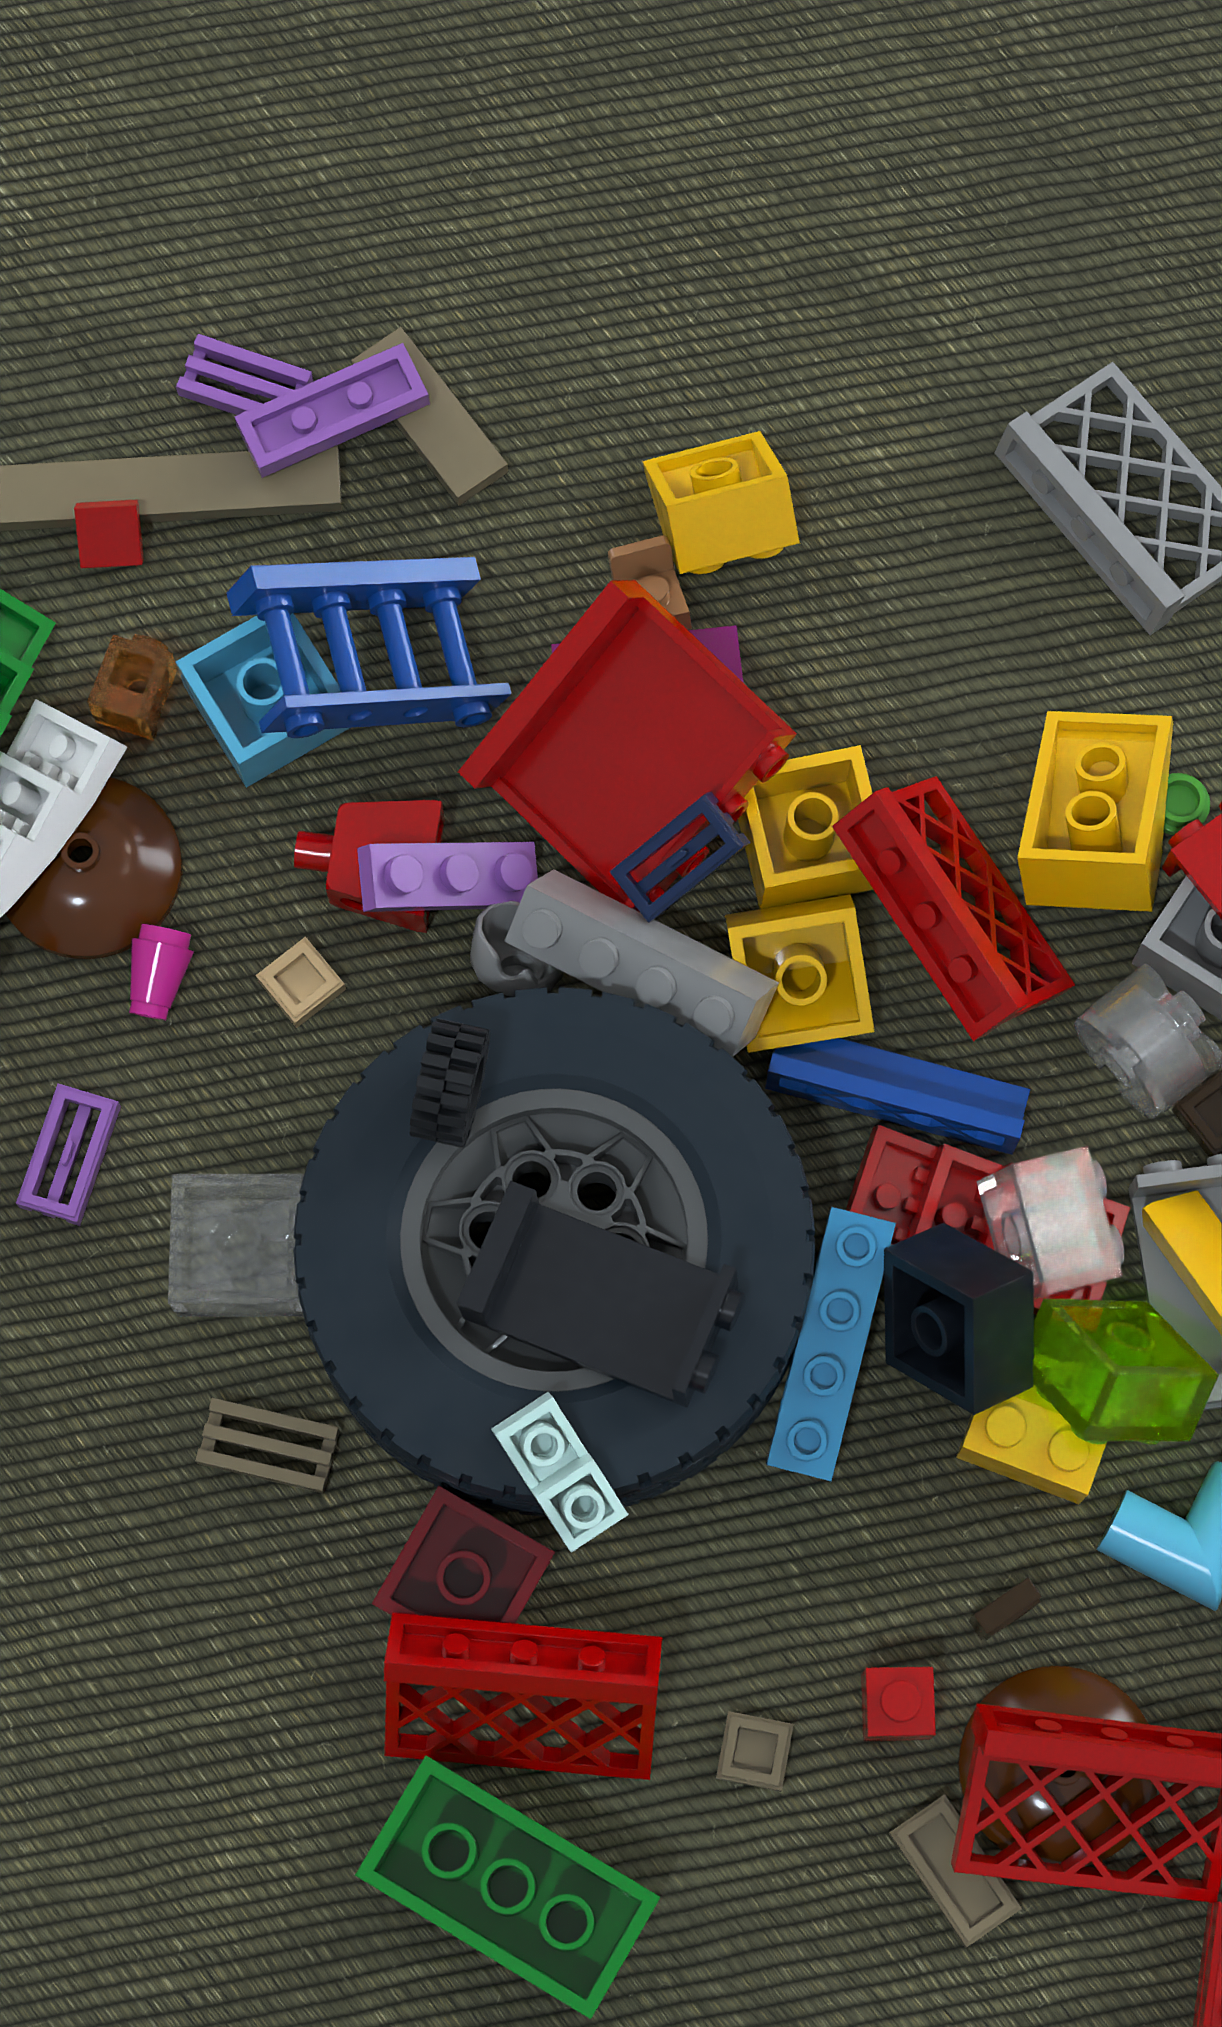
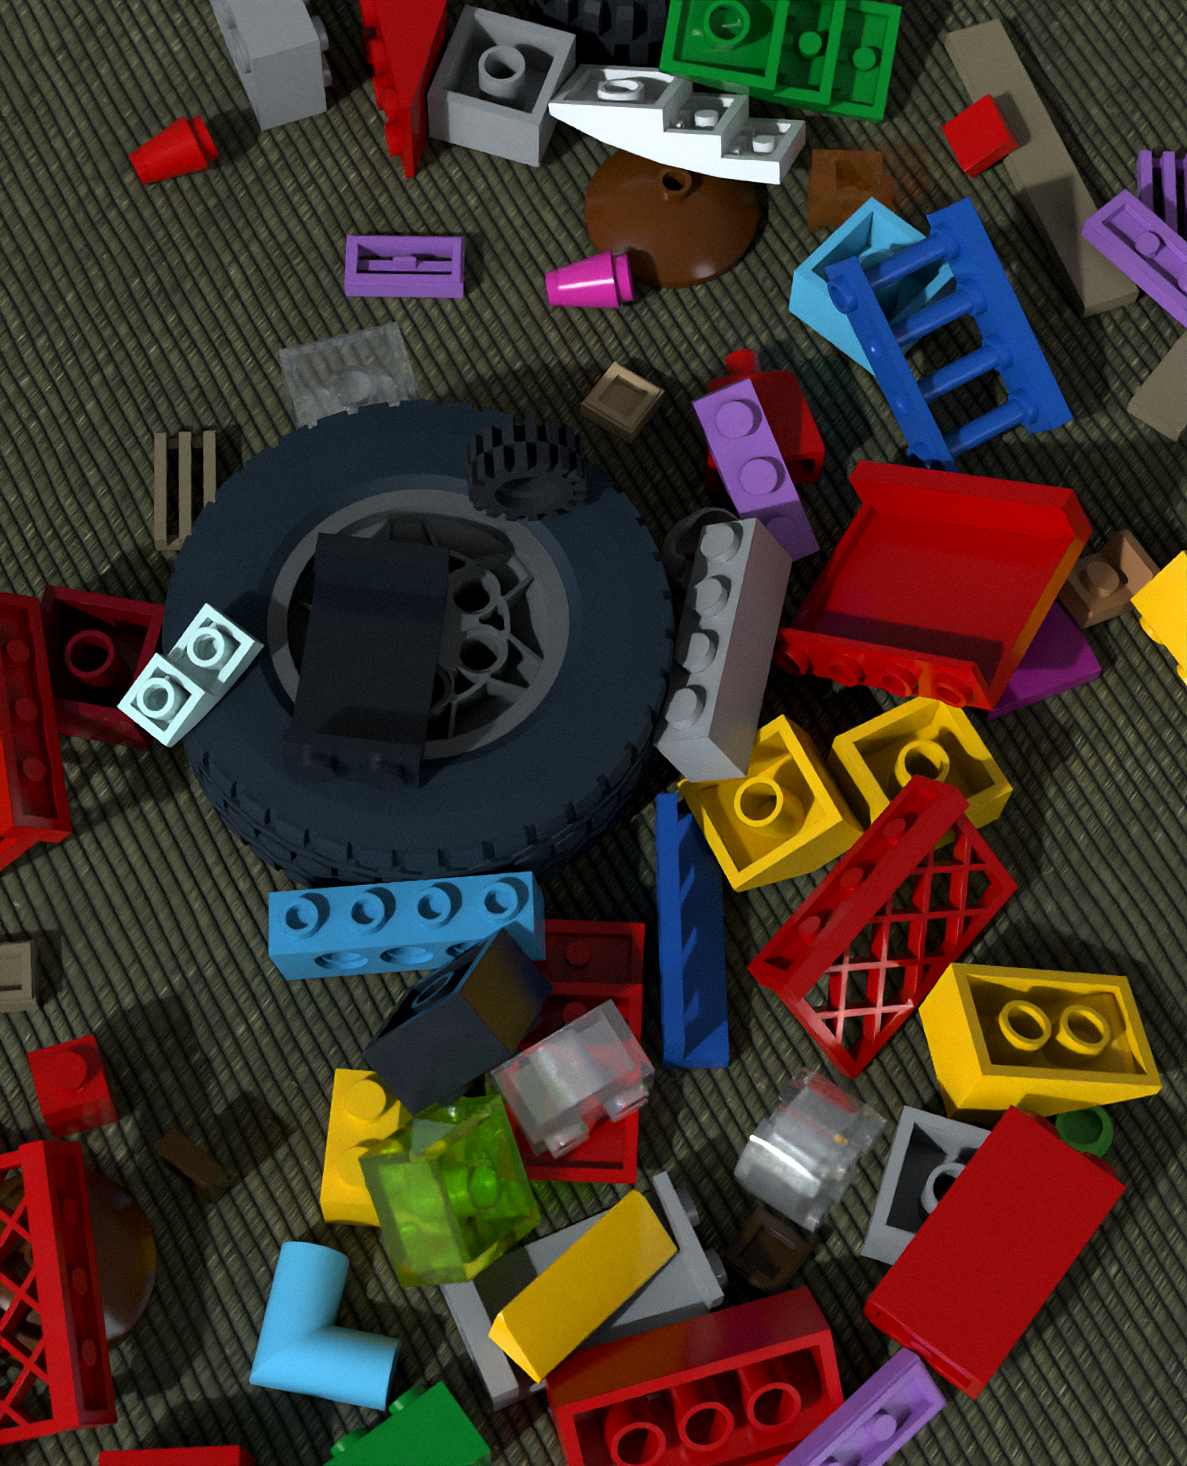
camera: 70 degrees right, 10 degrees down
(719, 825) = (866, 661): dark blue tile -> none

